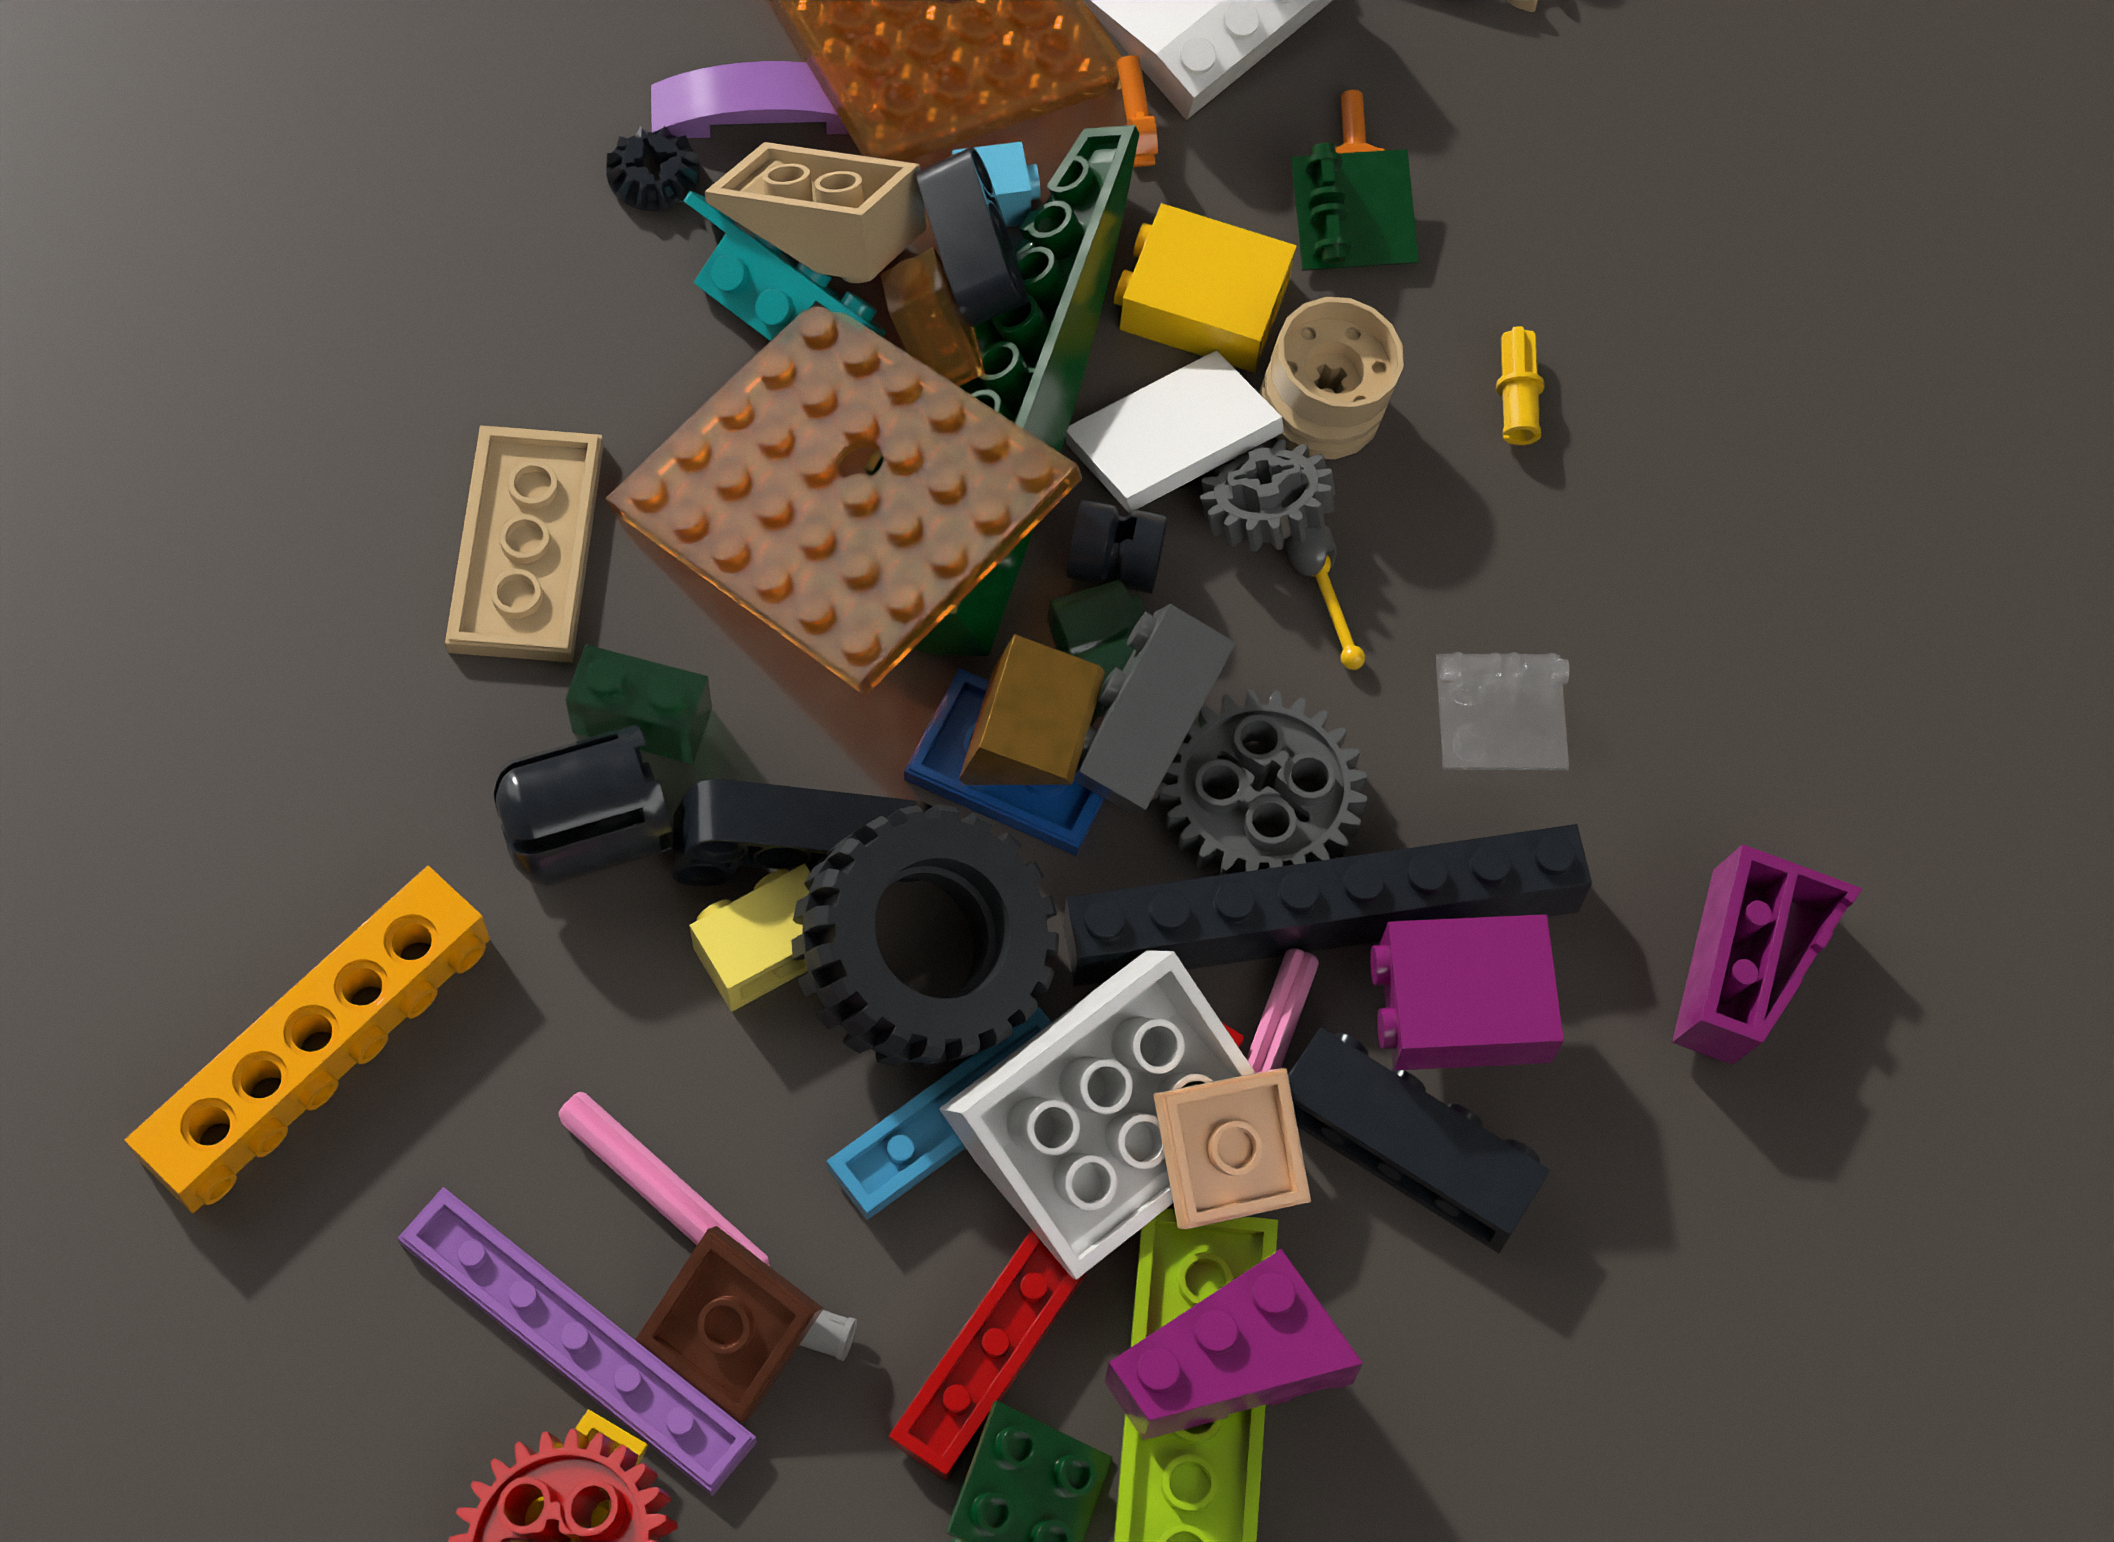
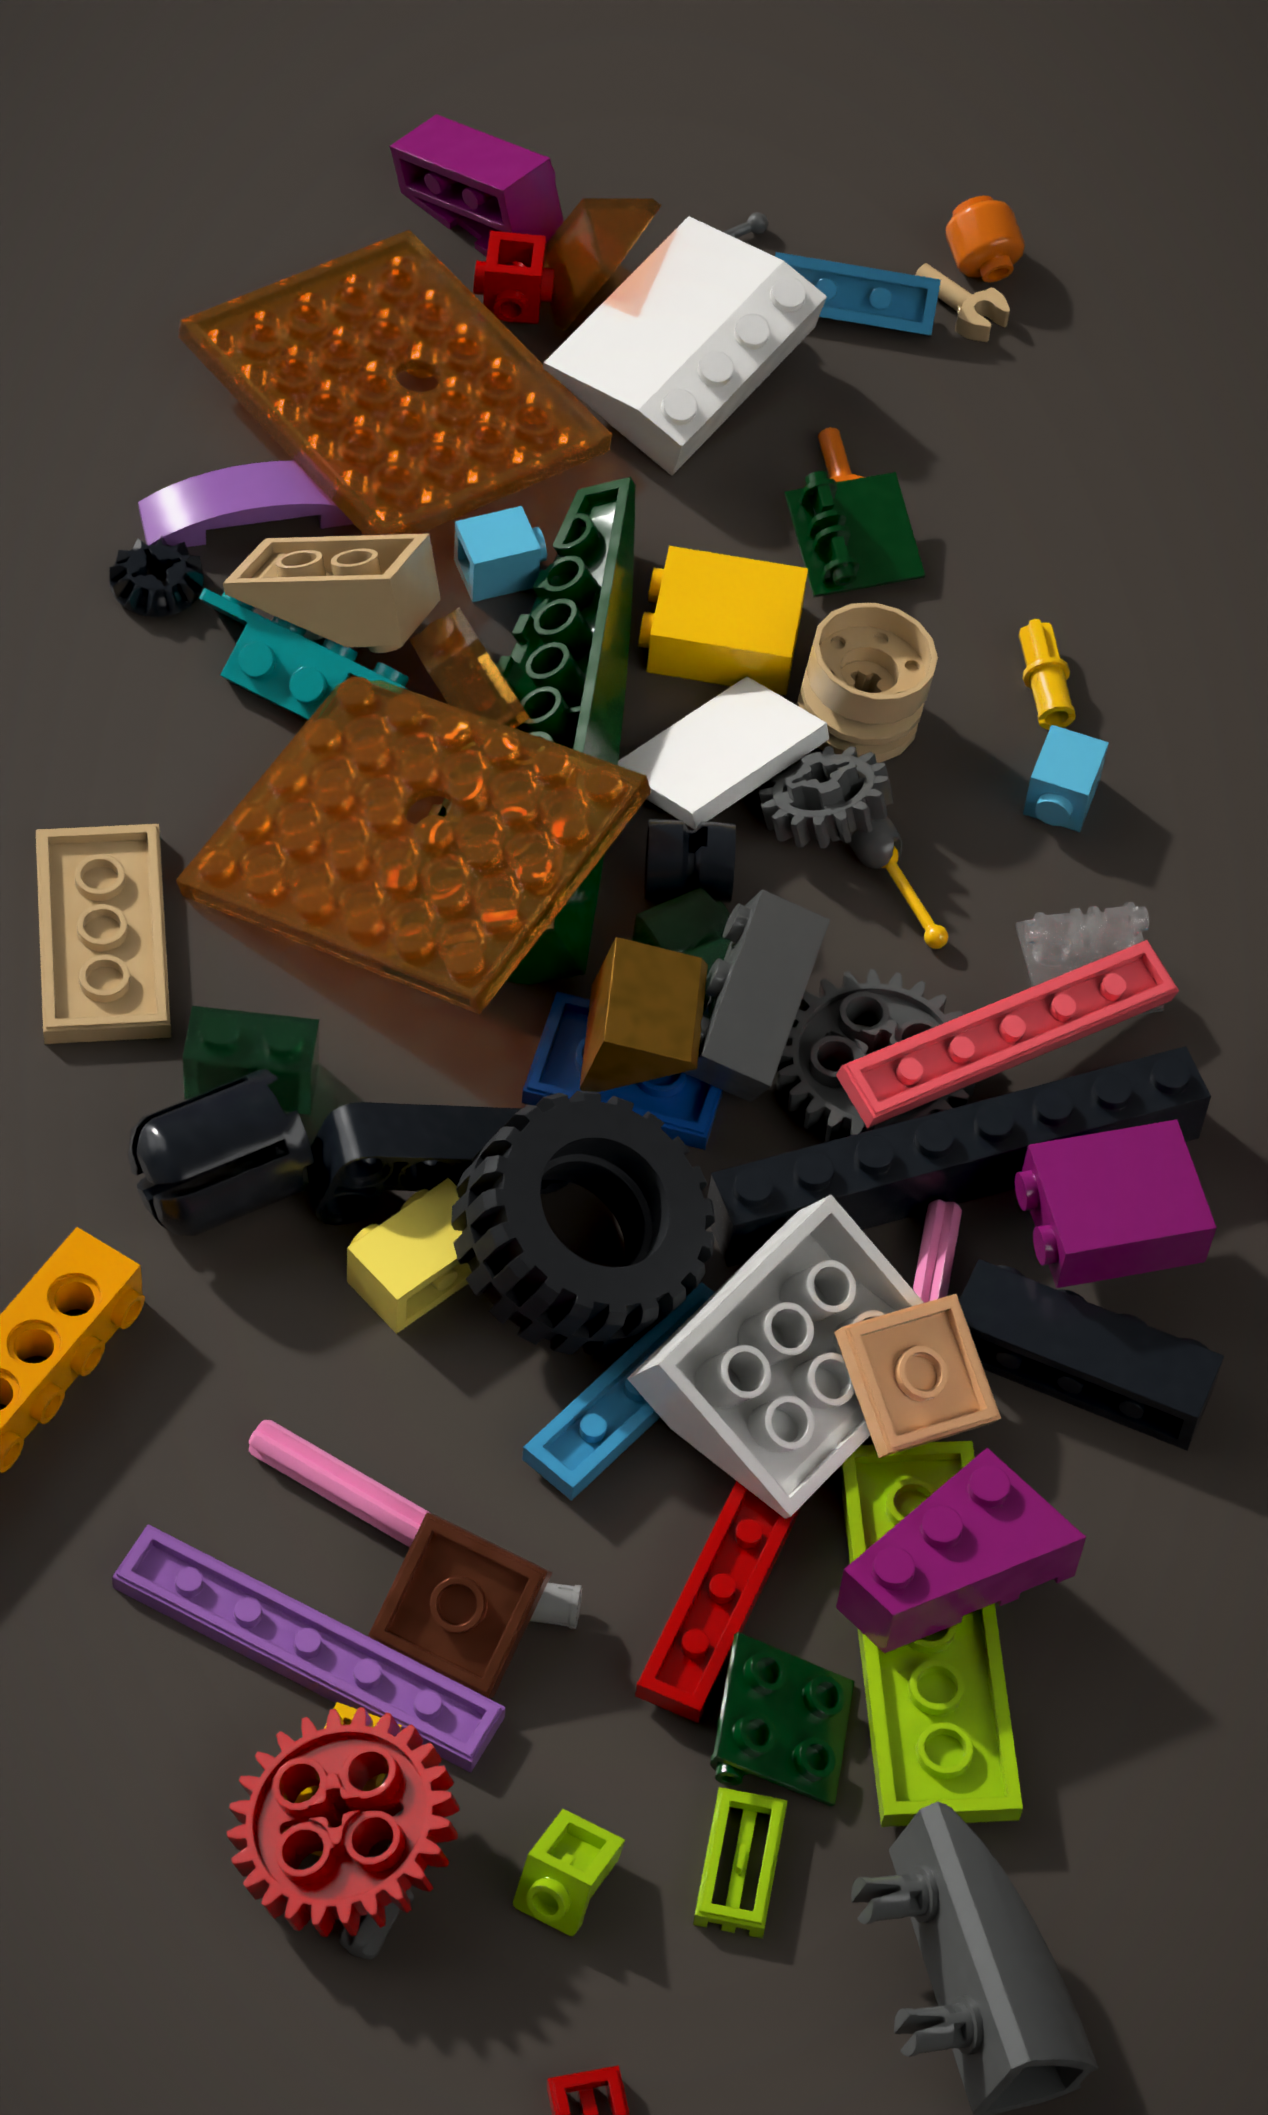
camera: 10 degrees left, 10 degrees down
(972, 237) = (494, 594): black beam -> none
(1137, 109) = (625, 466): orange bar -> none
(1398, 781) = (1006, 1033): none -> coral tile
(1516, 505) = (1065, 778): none -> medium azure brick

